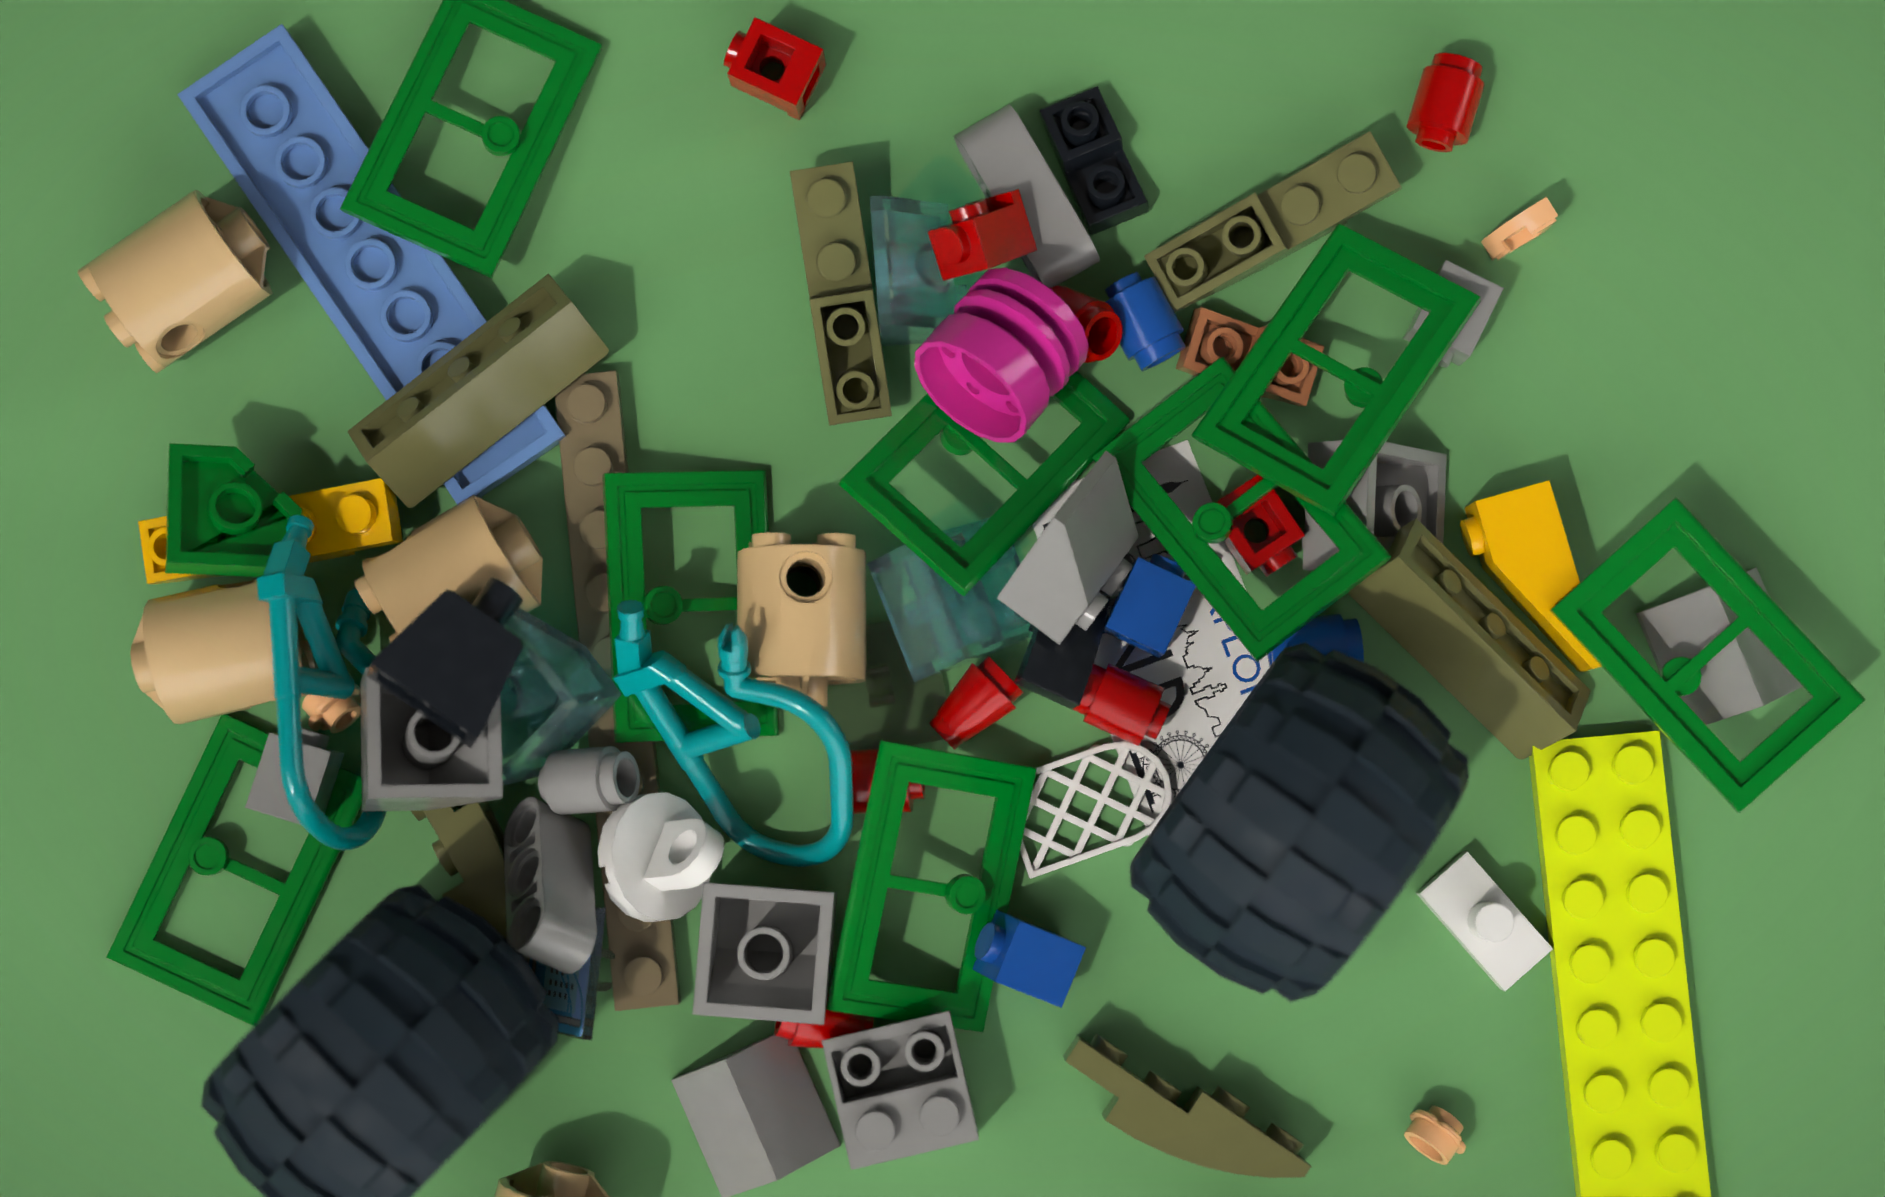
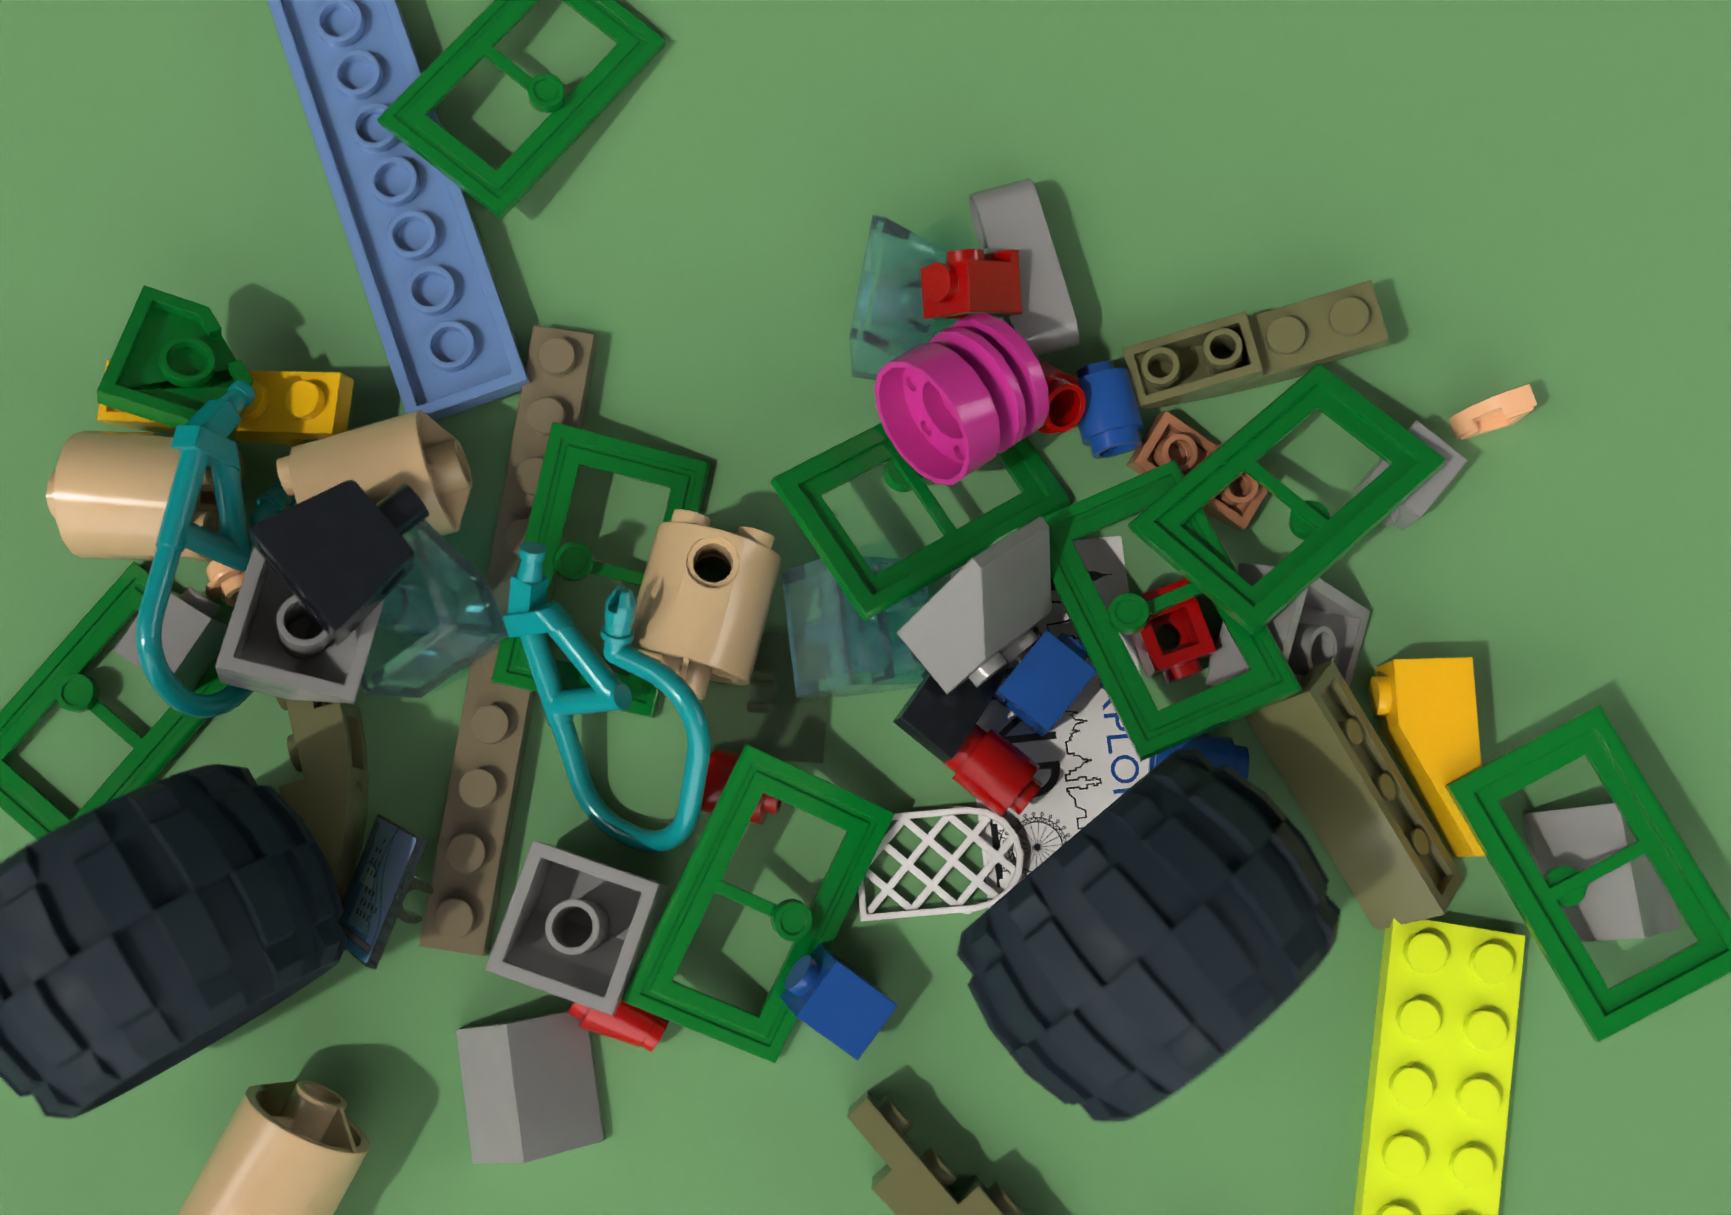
camera: 15 degrees right, 5 degrees down
(180, 277) = (209, 145): tan cylinder -> none
(478, 392) = (454, 318): olive panel -> none
(549, 886) = (381, 805): light grey beam -> none
(588, 780) = (452, 710): light grey brick -> none
(658, 856) = (497, 802): white tile -> none
(767, 44) = (819, 73): red brick -> none
(840, 293) = (824, 311): olive slope -> none
(900, 1089) = (674, 1103): light grey slope -> none
(975, 703) = (851, 734): red cone -> none
(1094, 160) = (1095, 253): black slope -> none
(1446, 102) = (1447, 277): red brick -> none
(1484, 920) = (1305, 1083): white tile -> none

